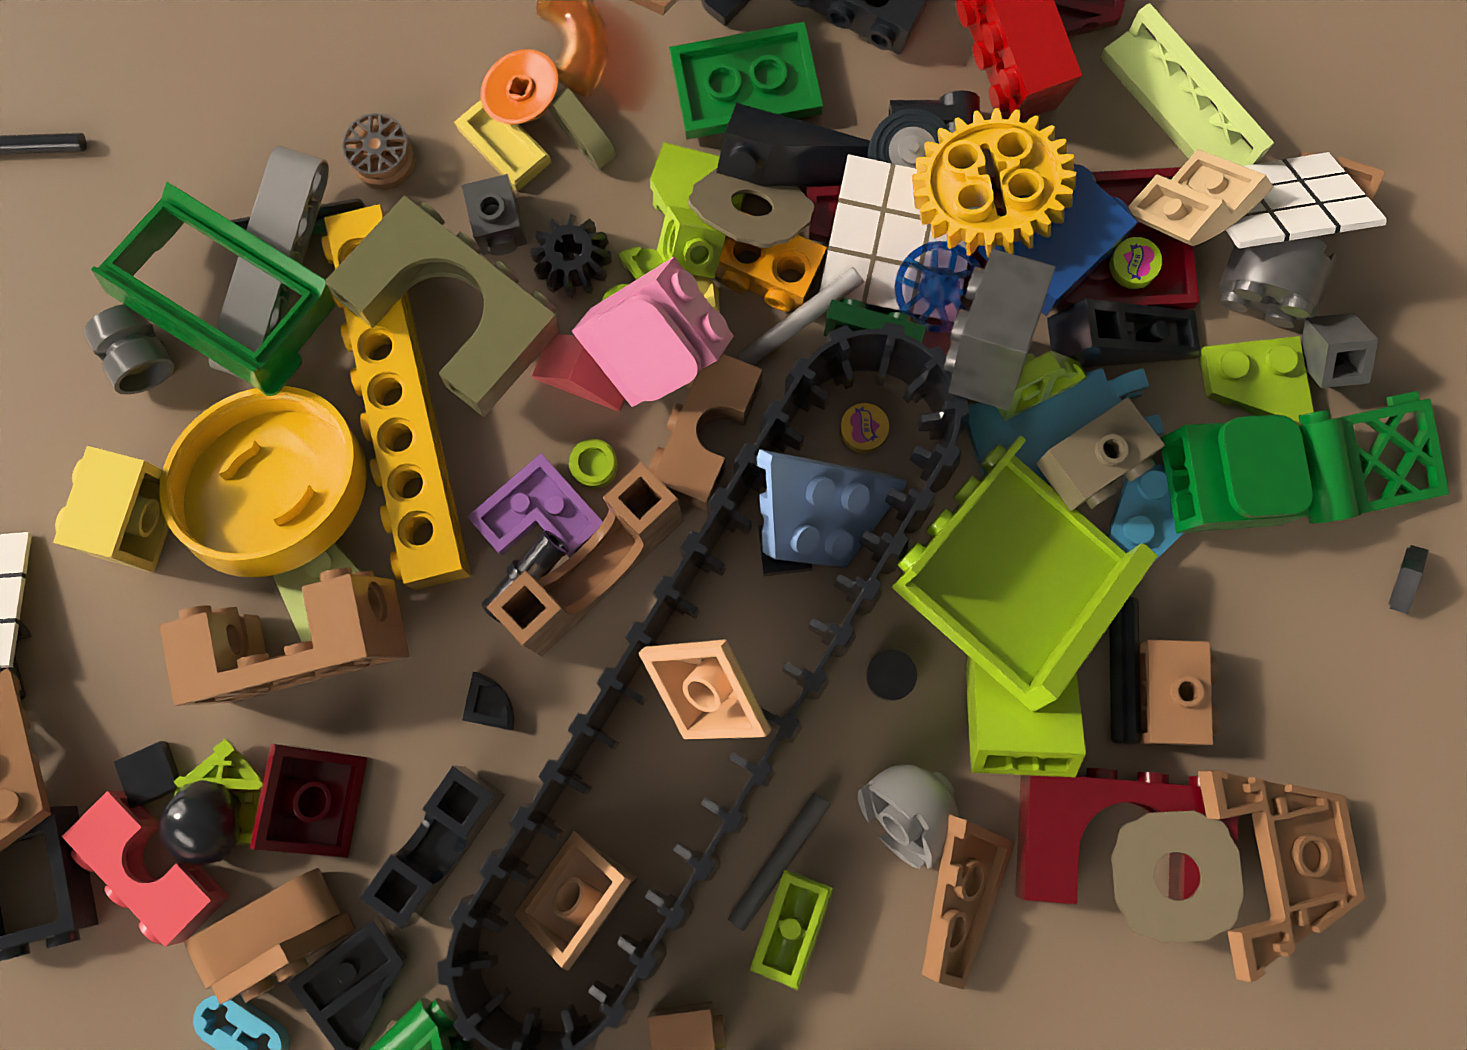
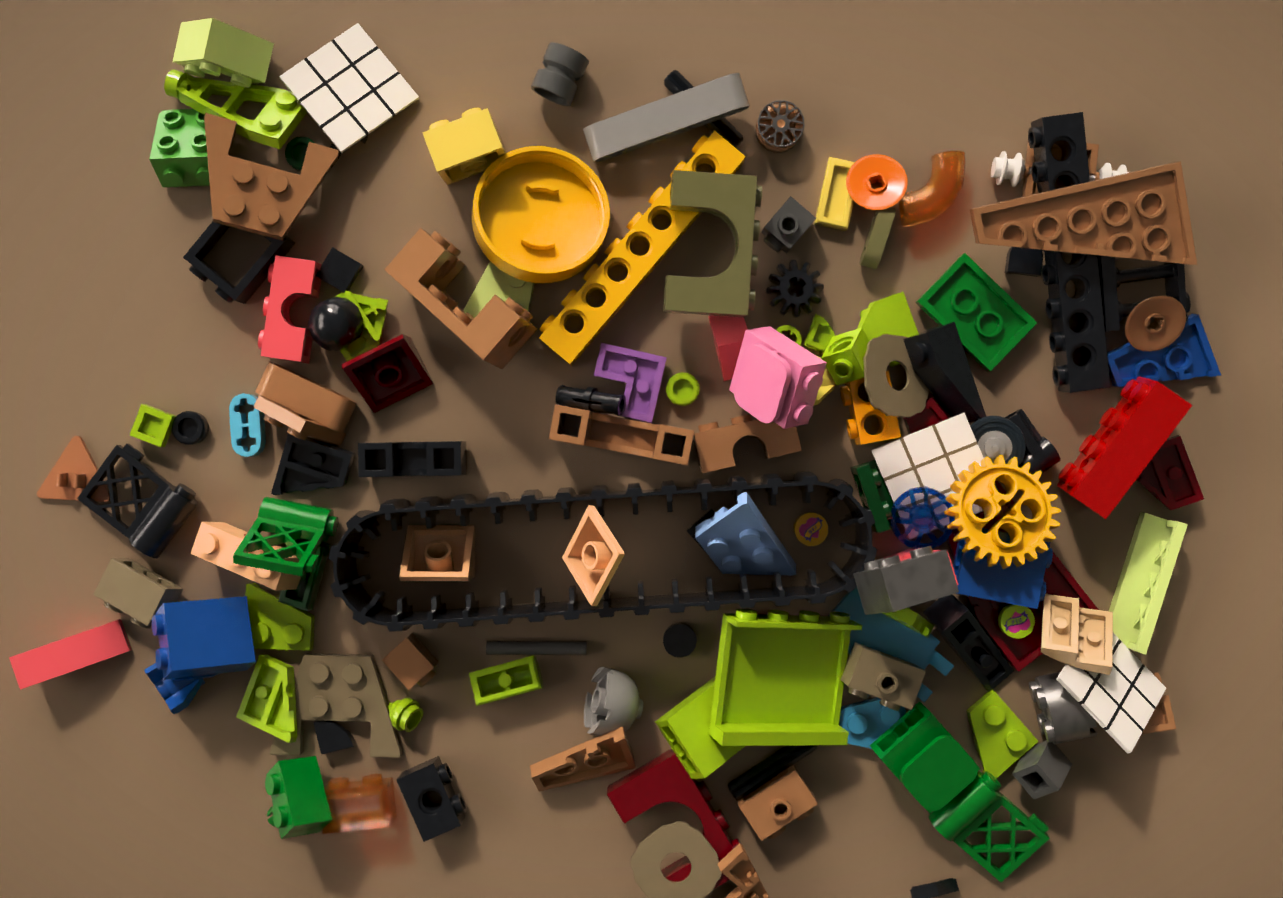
camera: 45 degrees right, 10 degrees up
(277, 356) = (616, 170): green piece -> none
(488, 703) = (508, 429): black tile -> none
(801, 317) = (849, 450): light grey bar -> none

